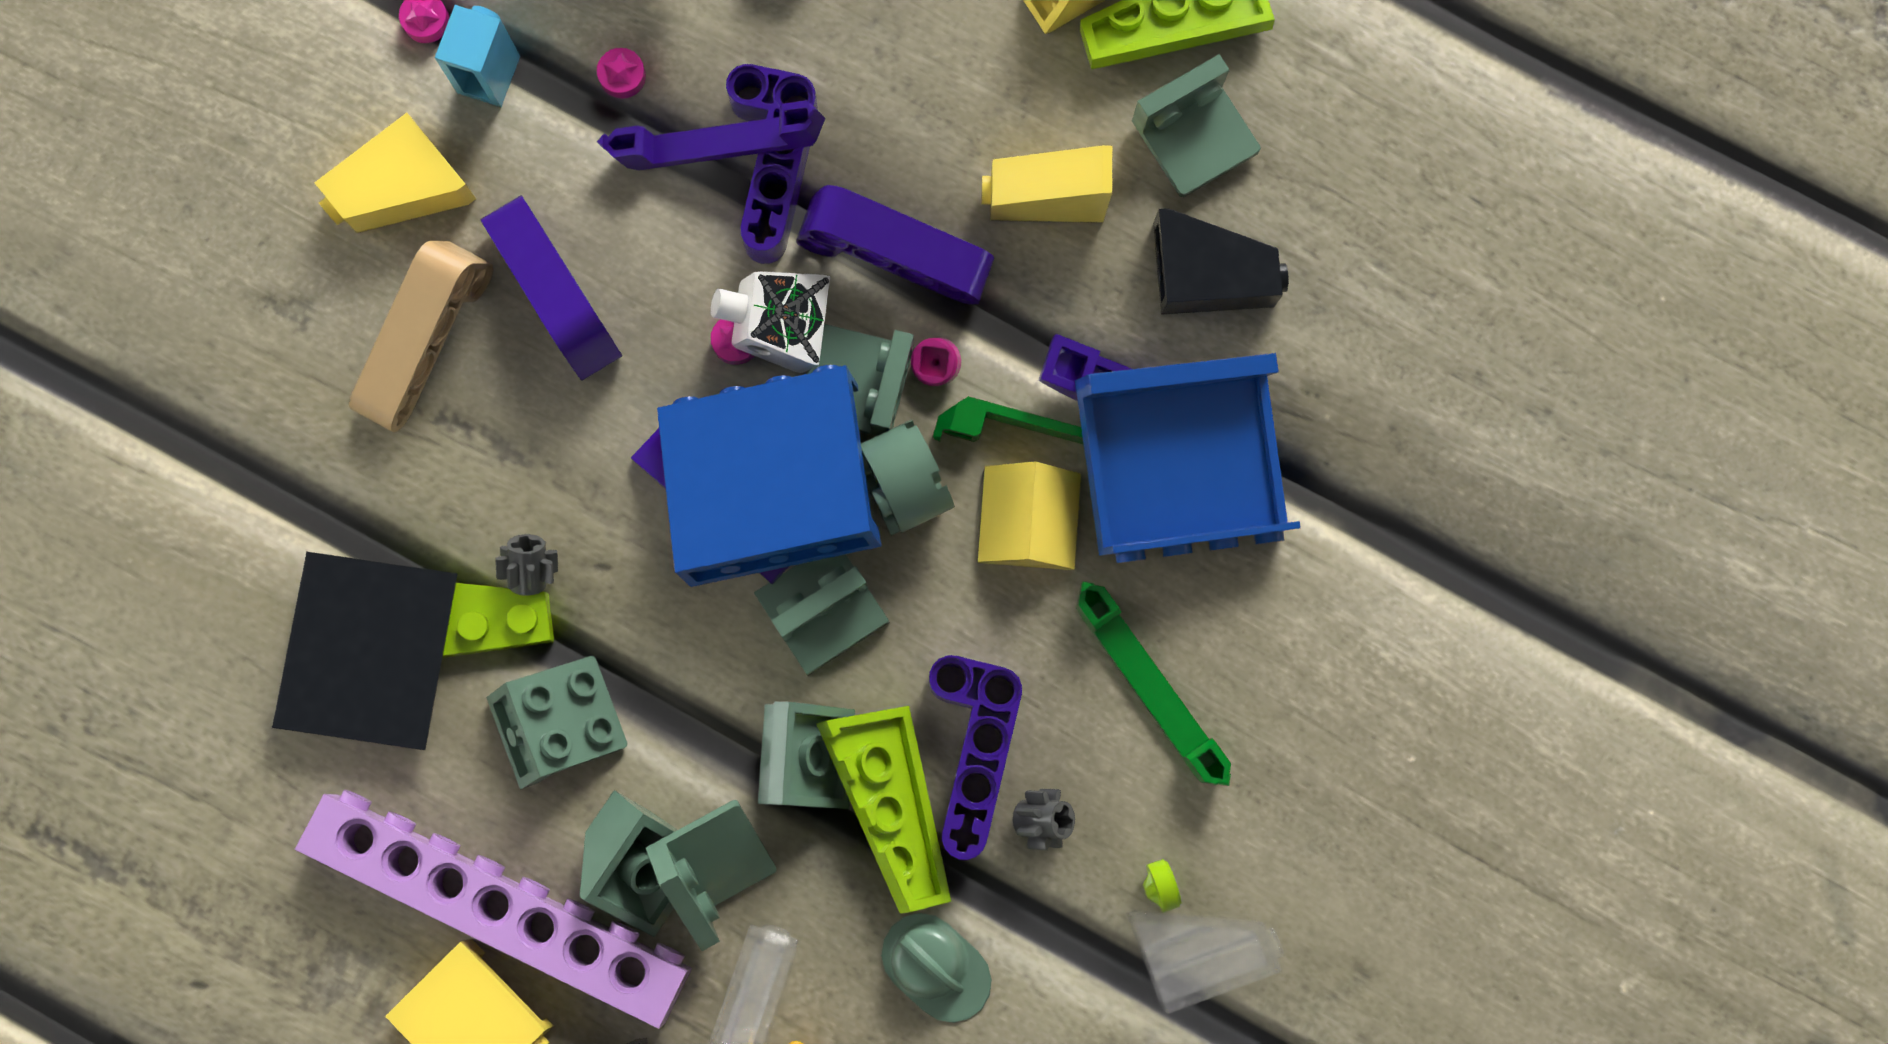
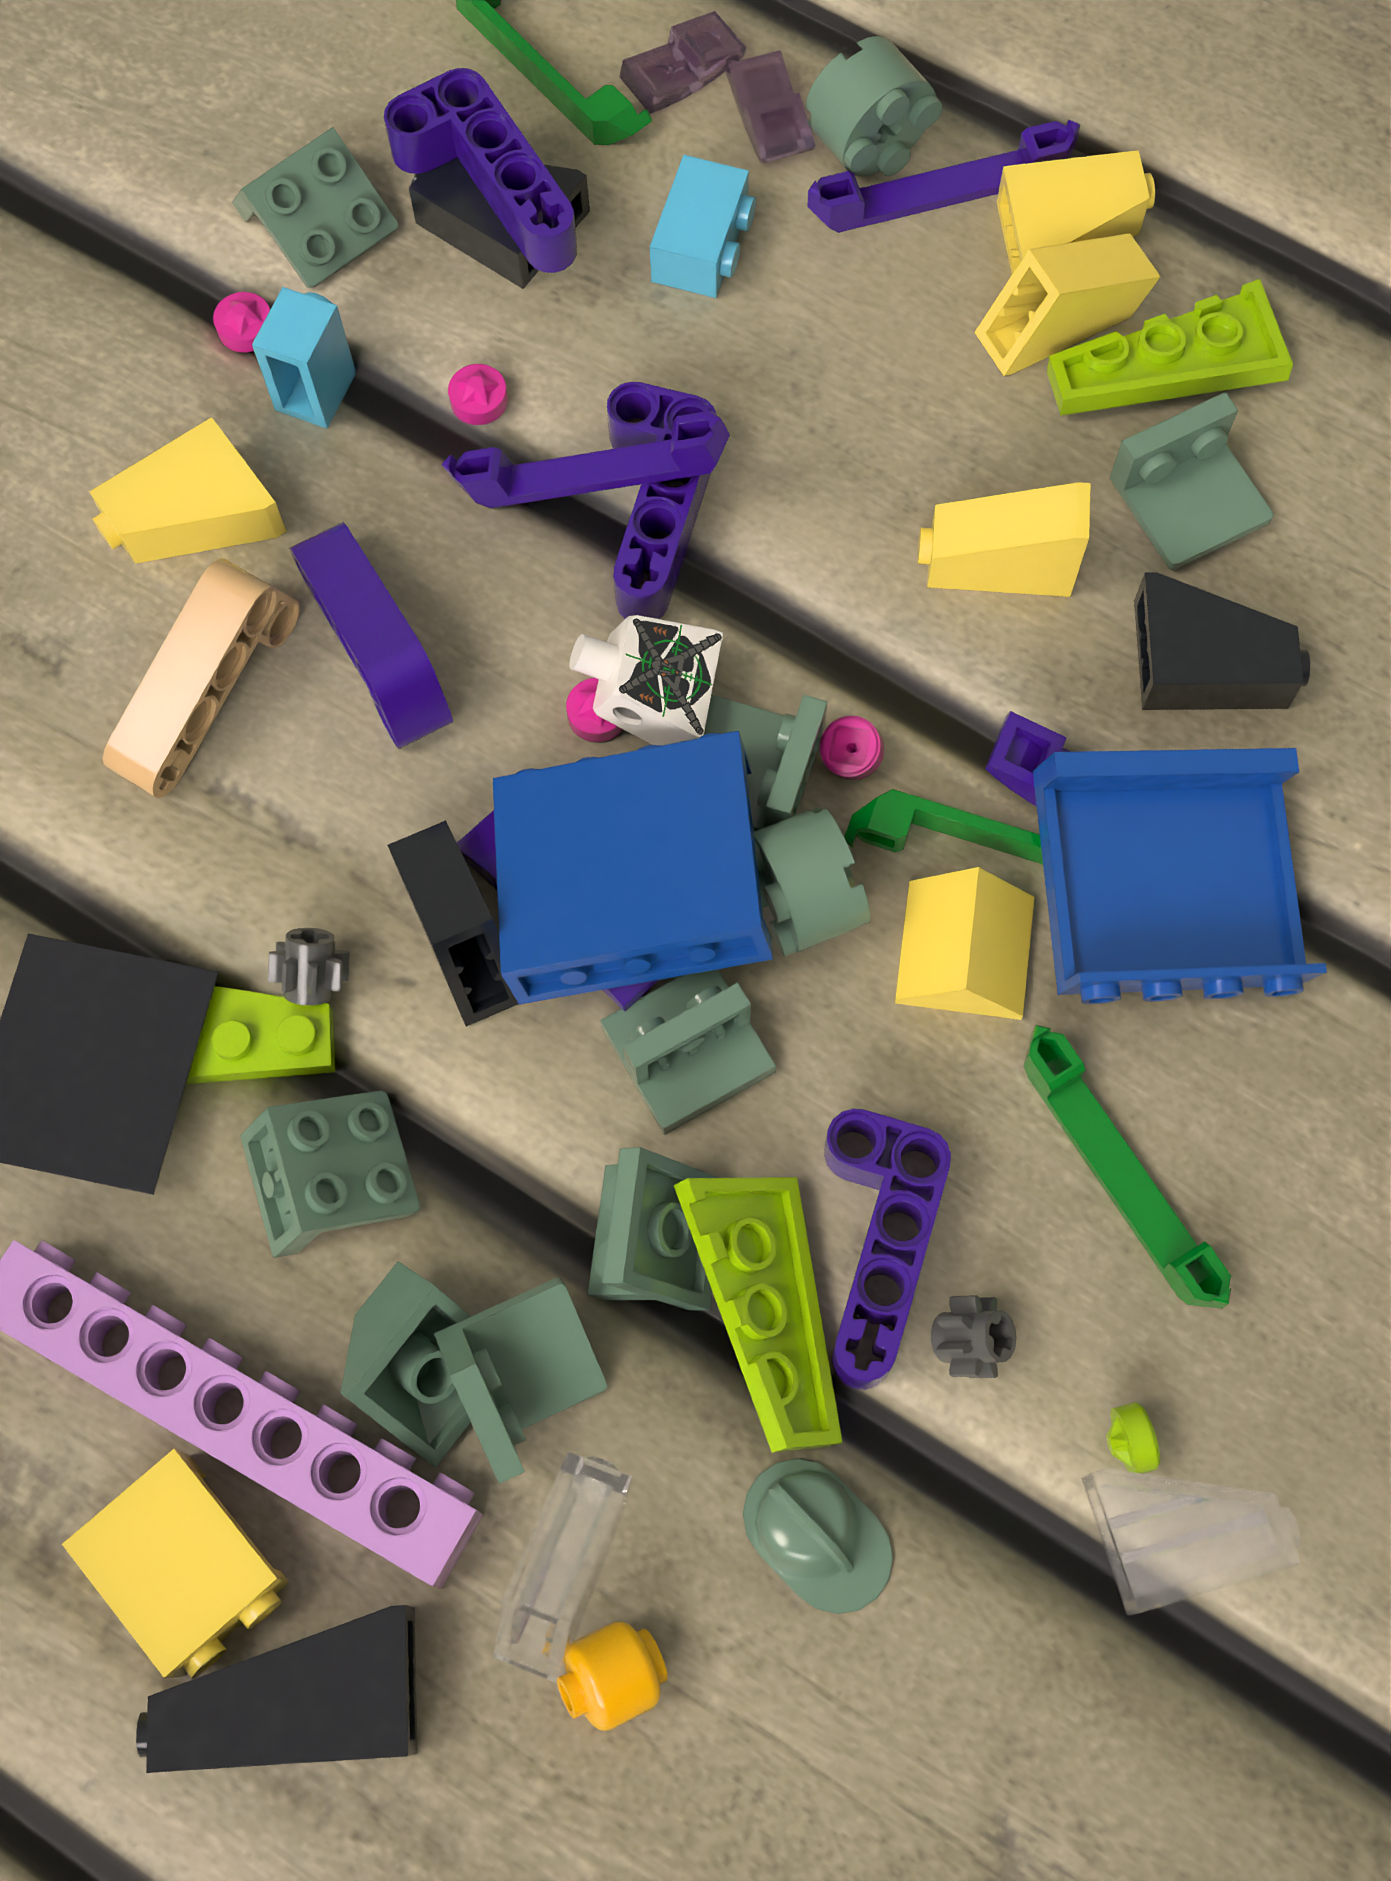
camera: 10 degrees right, 10 degrees down
(633, 520) = (454, 920): none -> black slope
(894, 242) = (806, 597): dark purple beam -> none

